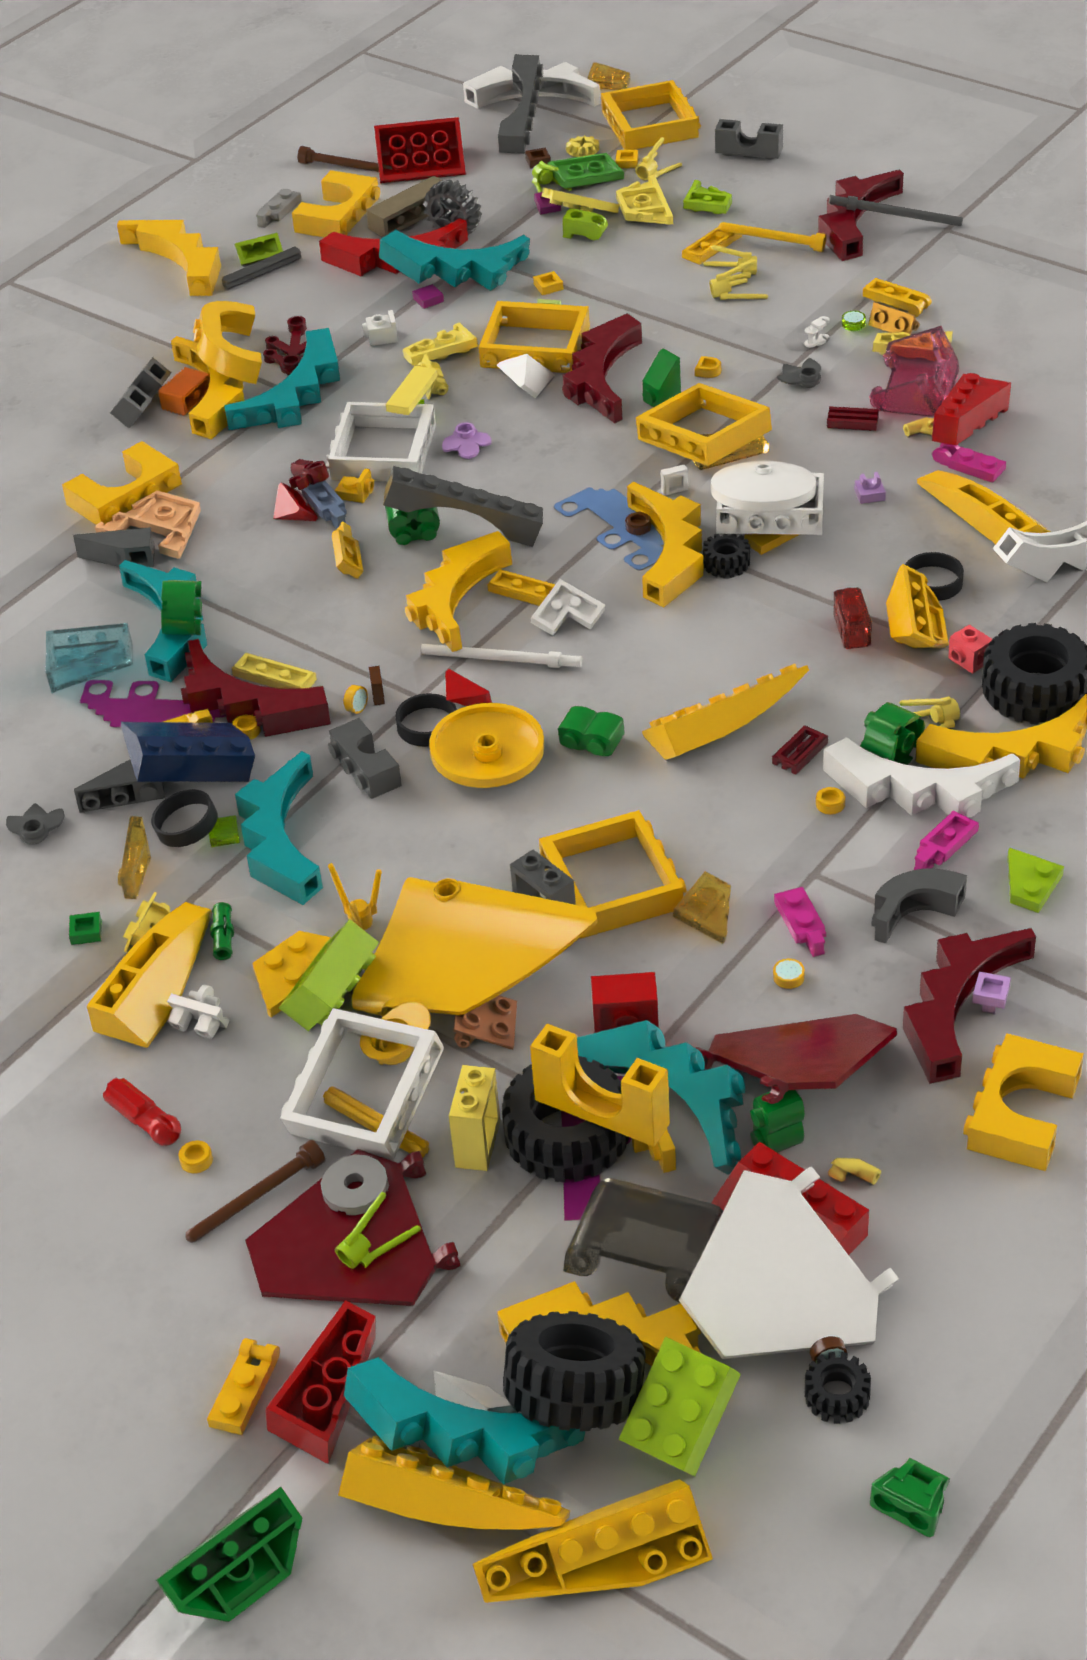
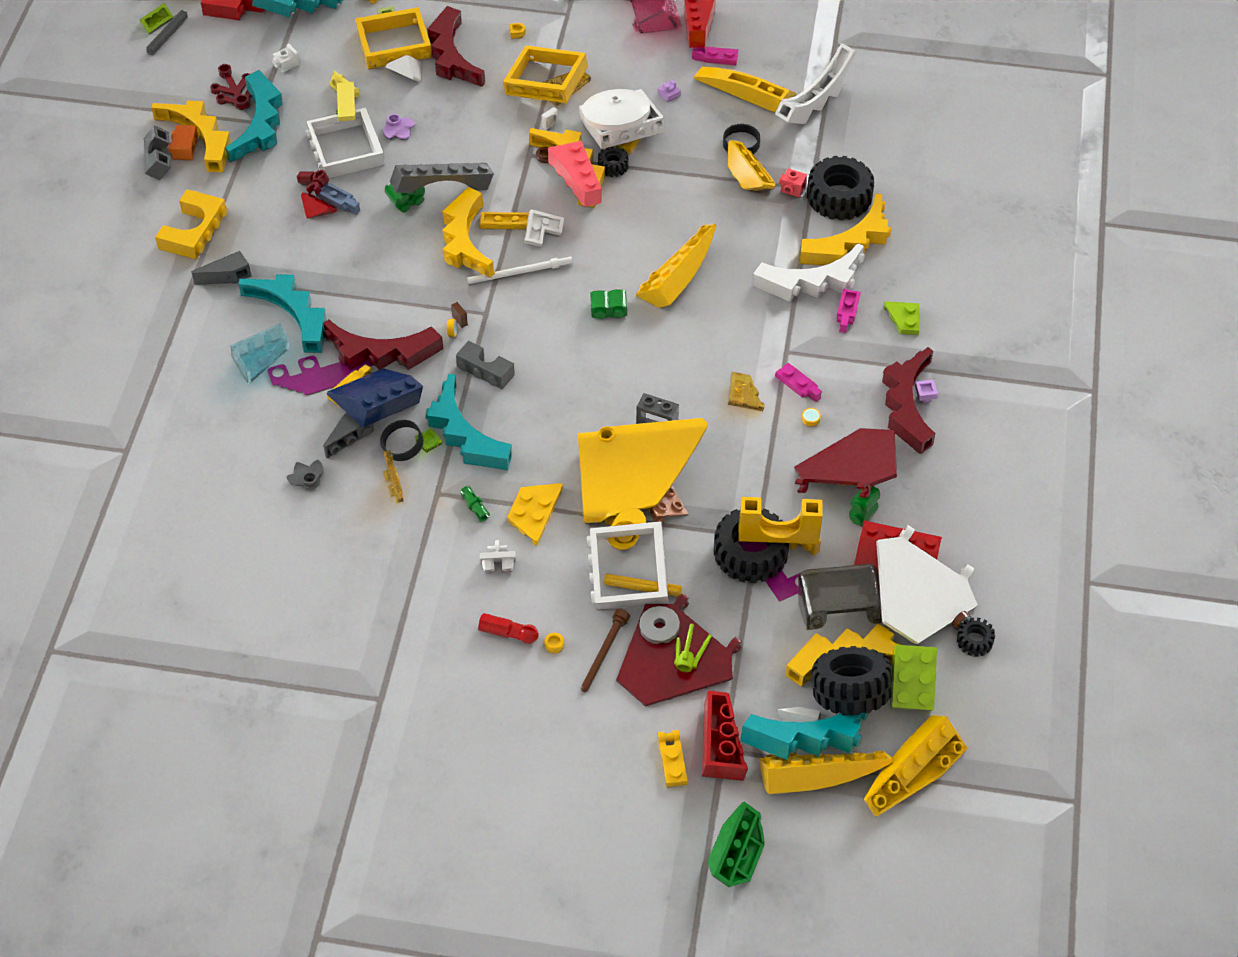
camera: 30 degrees left, 10 degrees up
(85, 928) = (388, 530): green tile -> none
(136, 993) = (456, 547): yellow wedge -> none
(149, 915) = (425, 509): light yellow hinge -> none
(165, 515) = (234, 238): light nougat wing -> none
(171, 241) = (83, 27): yellow arch -> none
(181, 607) = (312, 302): green brick -> none
(216, 351) = (176, 90): yellow arch -> none
(247, 725) = (394, 365): yellow tile -> none
(272, 673) = (385, 326): light yellow tile -> none
(330, 976) = (566, 509): lime brick -> none
(347, 551) = (375, 227): yellow hinge -> none
(356, 488) = (349, 182): yellow bracket -> none
(358, 909) = (549, 463): yellow plant -> none
(416, 703) = (503, 313): black tyre -> none
(428, 296) = (298, 24): magenta tile -> none
(446, 343) = (334, 60): light yellow wing -> none
(463, 691) = (518, 302): red slope -> none
(474, 1117) = (705, 560): light yellow window -> none
(486, 745) = (556, 333): yellow dish -> none
(610, 831) = (720, 388): yellow window -> none
(614, 509) = (520, 148): medium blue piece -> none
(624, 1000) = (743, 470): red container -> none
(653, 543) = (576, 169): none -> coral wedge
(662, 379) = (501, 49): green slope -> none
(707, 1092) = (792, 495): teal arch -> none
(804, 752) = (733, 287): dark red tile -> none
(807, 375) = (579, 20): dark grey plate -> none
(830, 800) = (769, 303): yellow tile -> none
(852, 418) = (628, 43): dark red tile -> none
(852, 618) = (714, 182): clear red brick -> none
(855, 1166) = (912, 515): light yellow arm -> none
(892, 733) = (785, 251): green brick -> none
(911, 1496) = (1044, 678): green piece -> none
(915, 891) = (852, 343): dark grey arch -> none
(922, 425) = (675, 37): light yellow arm -> none
(944, 710) = (799, 228): light yellow plant -> none
(1020, 1065) = (969, 466): yellow arch -> none

